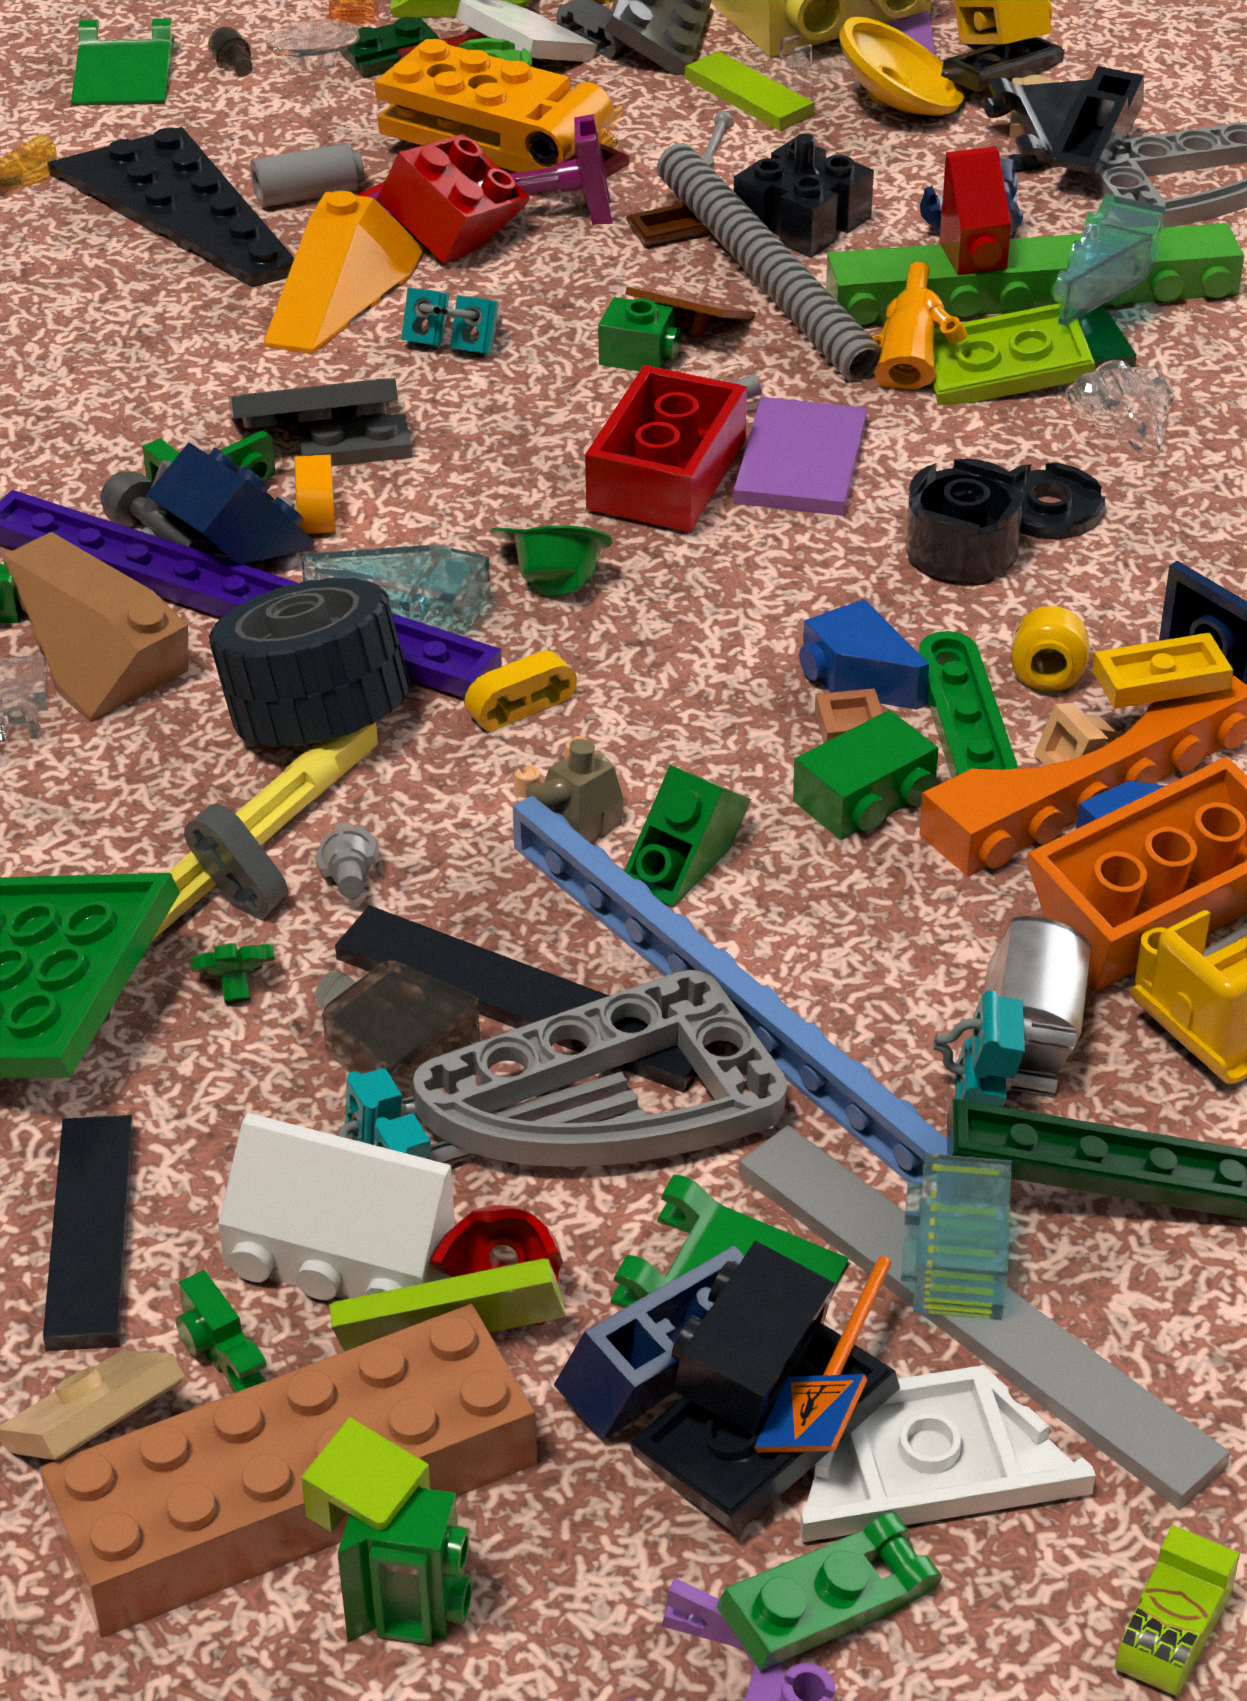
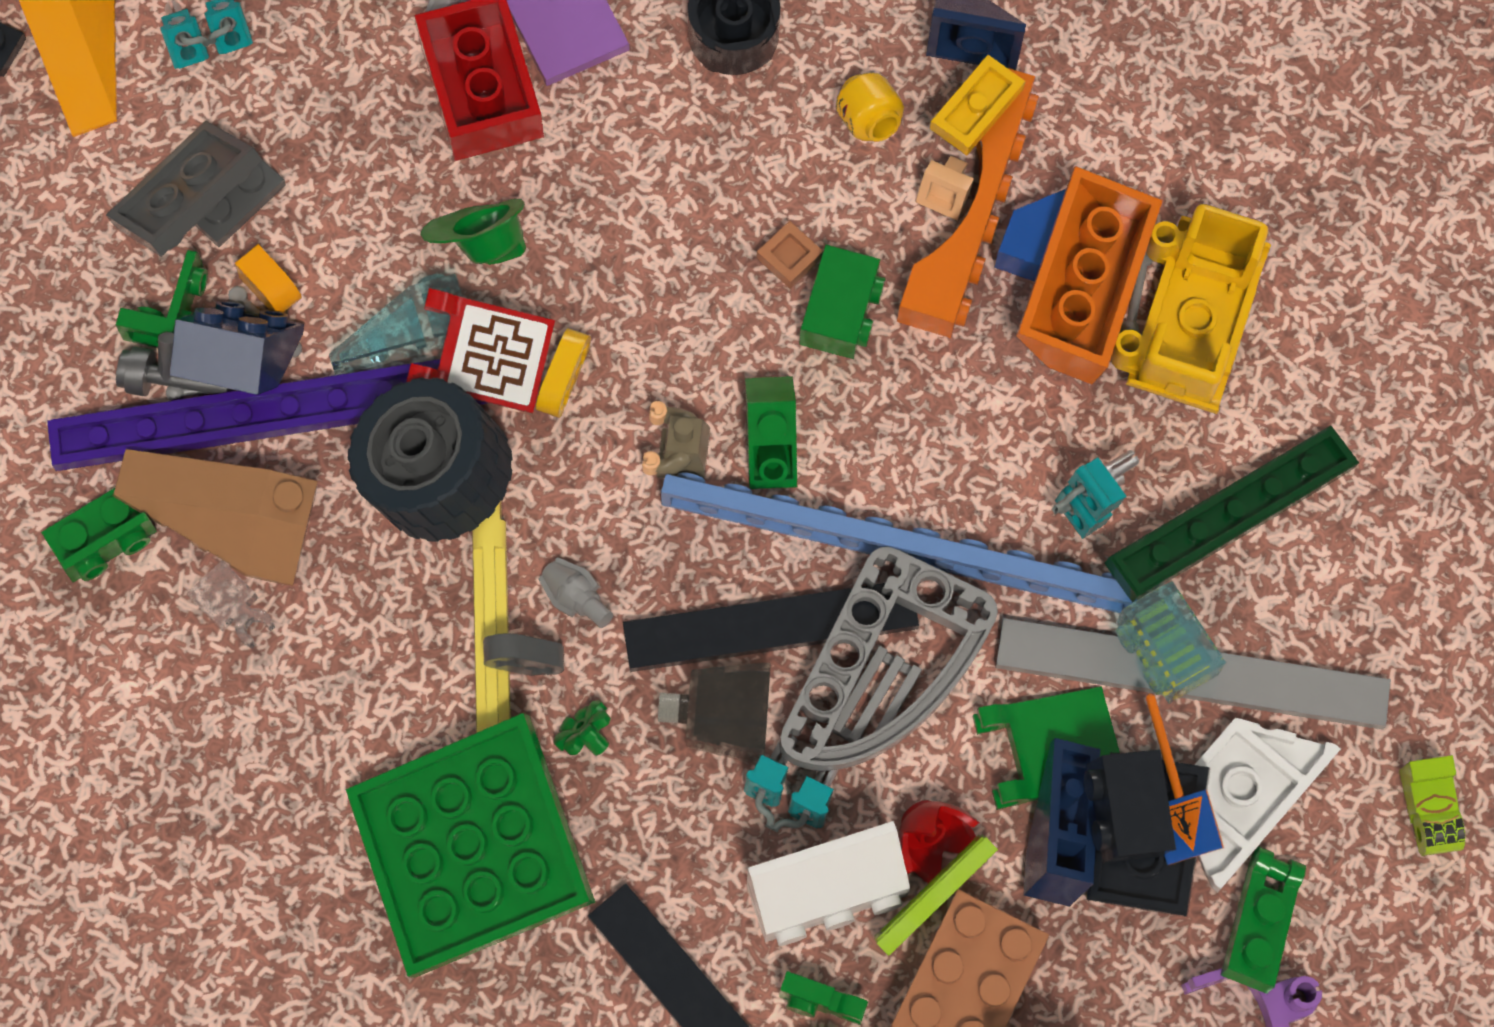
camera: 40 degrees left, 30 degrees up
(461, 620) = (490, 351): none -> flag
(862, 651) = (759, 194): blue slope -> none
(964, 705) = (857, 201): green plate -> none
(1046, 969) = (1075, 423): flat silver piece -> none

